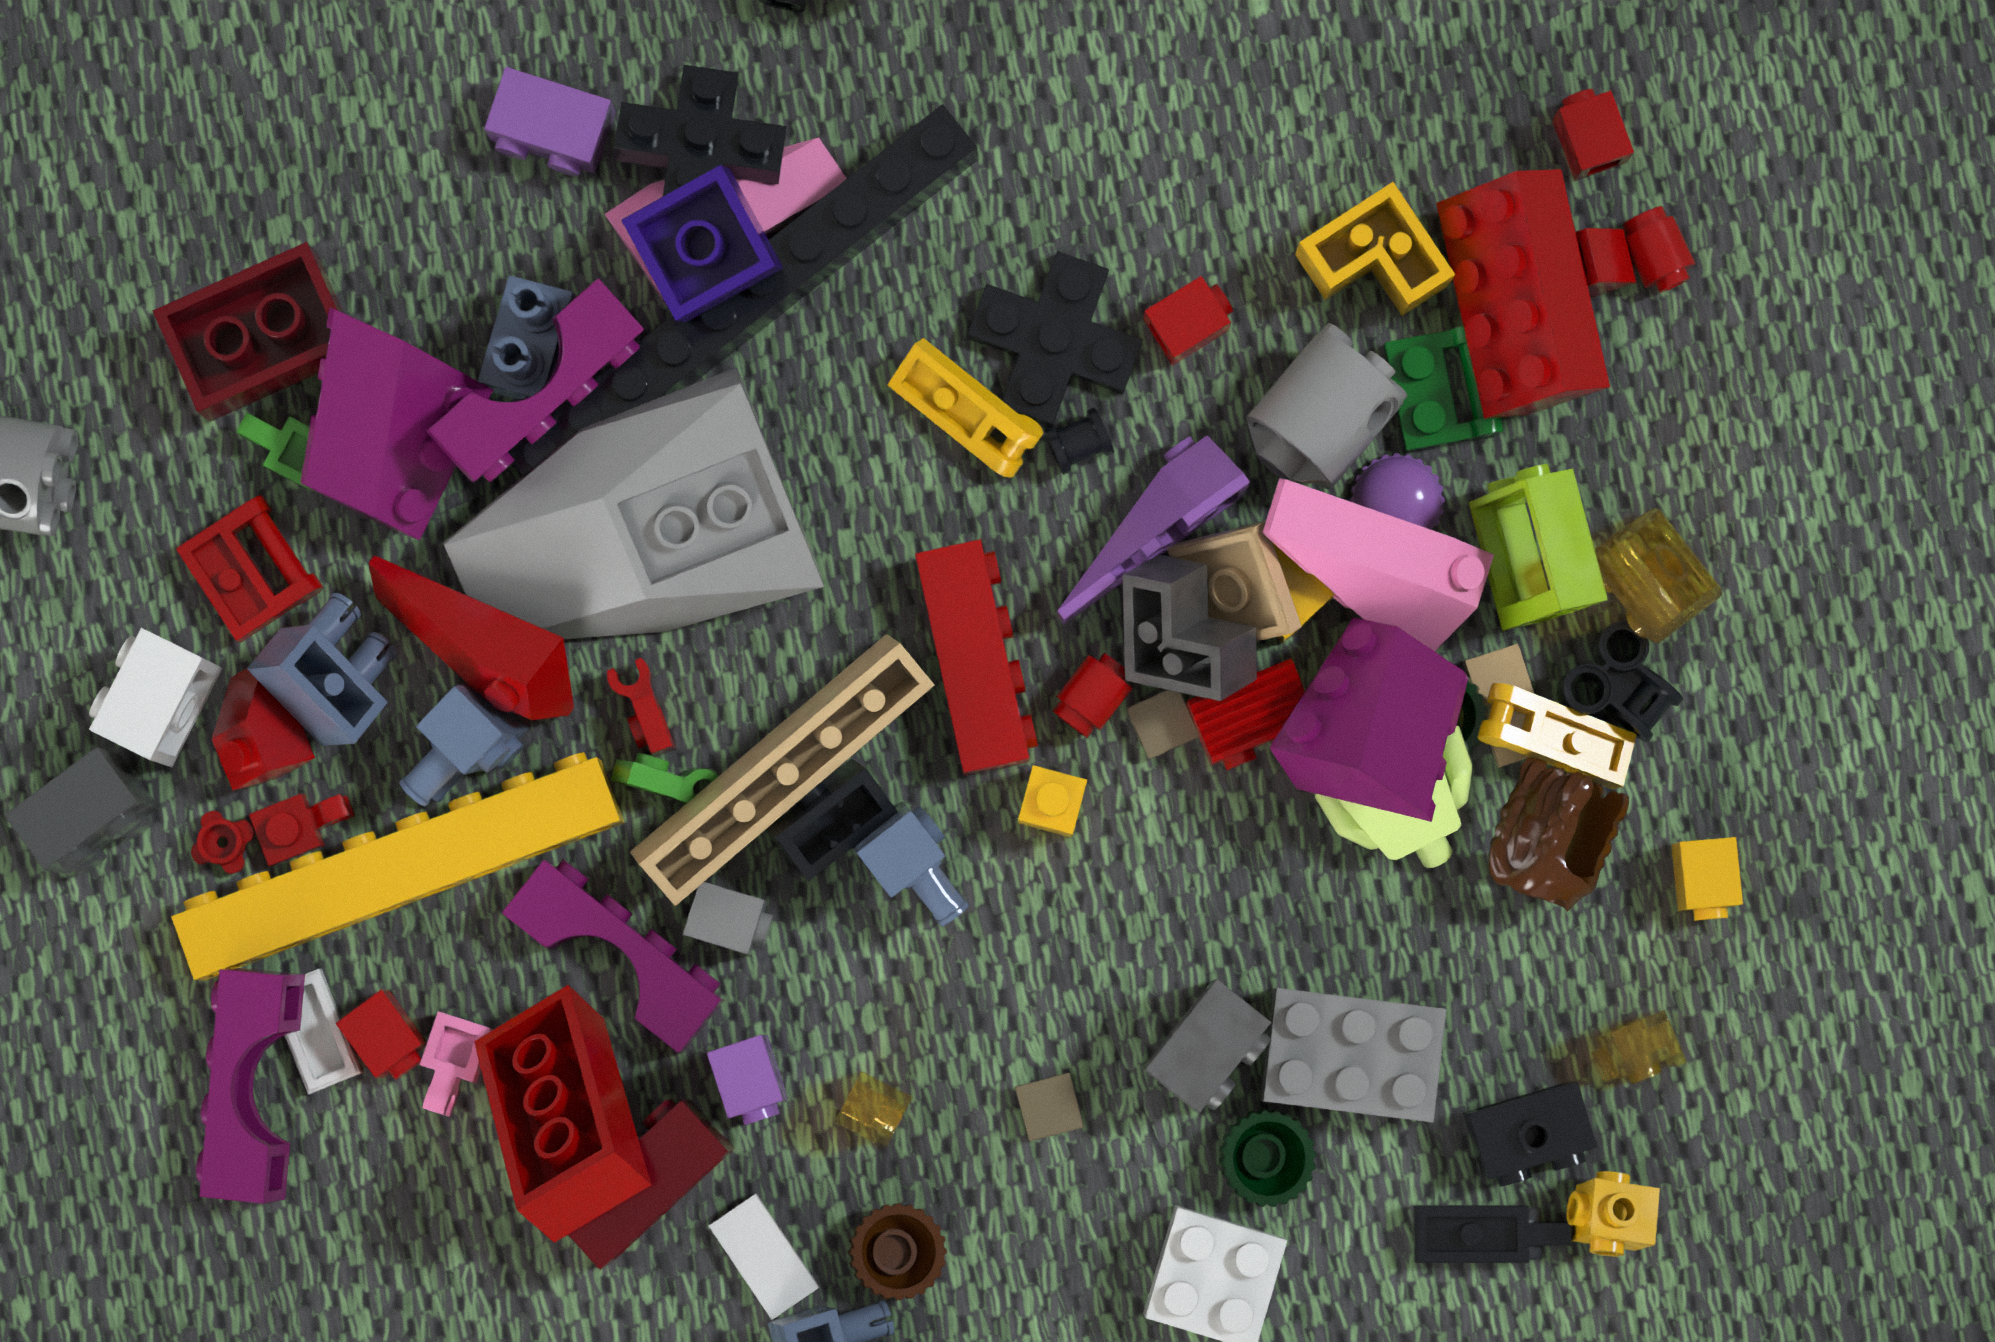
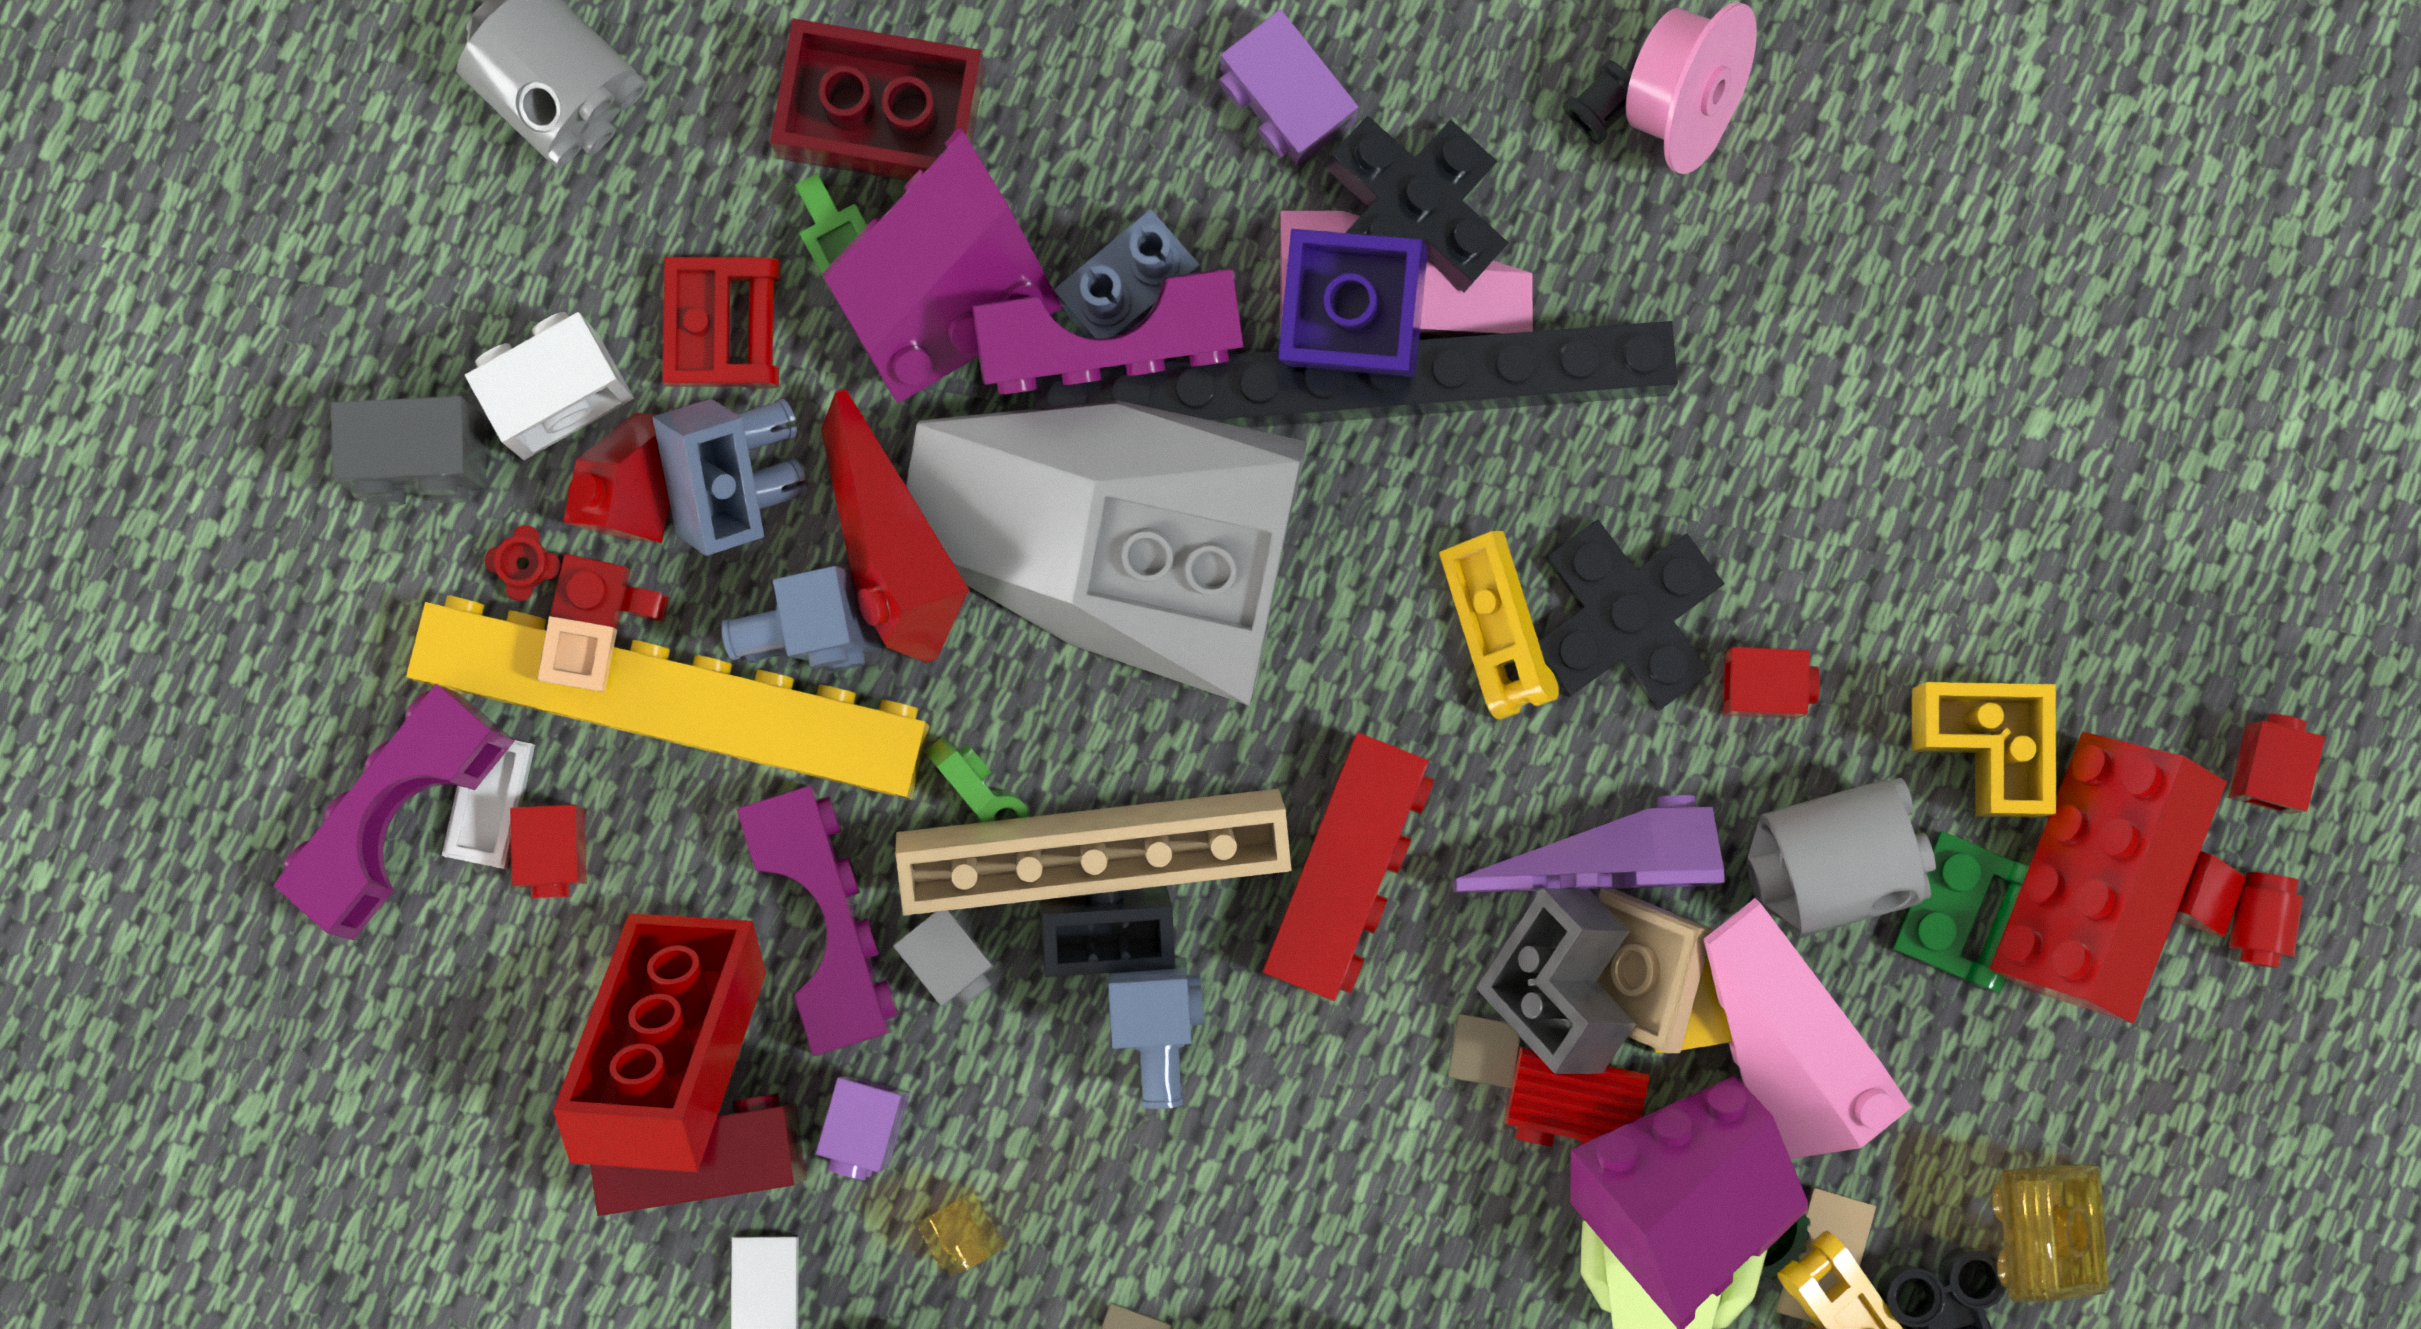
camera: 30 degrees right, 0 degrees up
(309, 878) = (577, 654): none -> light nougat plate
(453, 1058) = (599, 915): bright pink plate -> none
(648, 724) = (997, 722): red plate -> none
(1052, 801) = (1329, 1056): yellow brick -> none
(1078, 441) = (1585, 728): black bush -> none
(1092, 694) = (1435, 979): red brick -> none
(1400, 489) = (1861, 982): medium lavender hat -> none
(1563, 541) = (1990, 1139): lime window -> none

